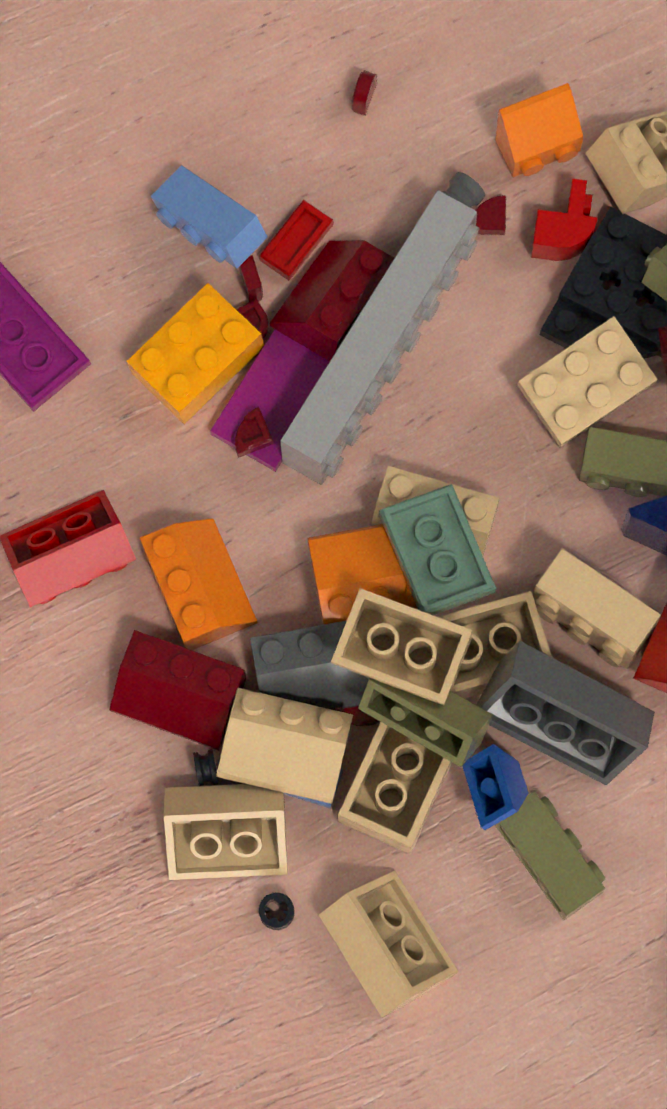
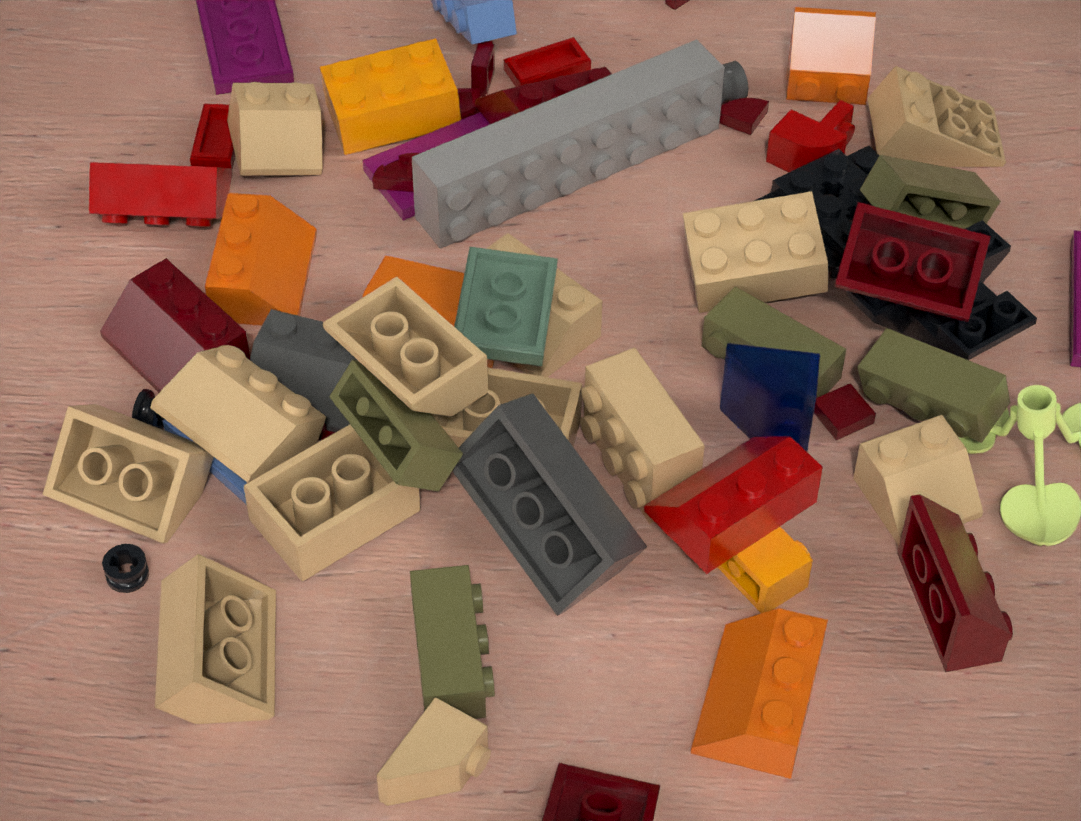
camera: 25 degrees right, 25 degrees down
(69, 461) = (213, 139): none -> red tile
(125, 441) = (276, 128): none -> tan slope
(495, 785) = (429, 537): blue slope -> none
(594, 947) = (435, 756): none -> tan slope

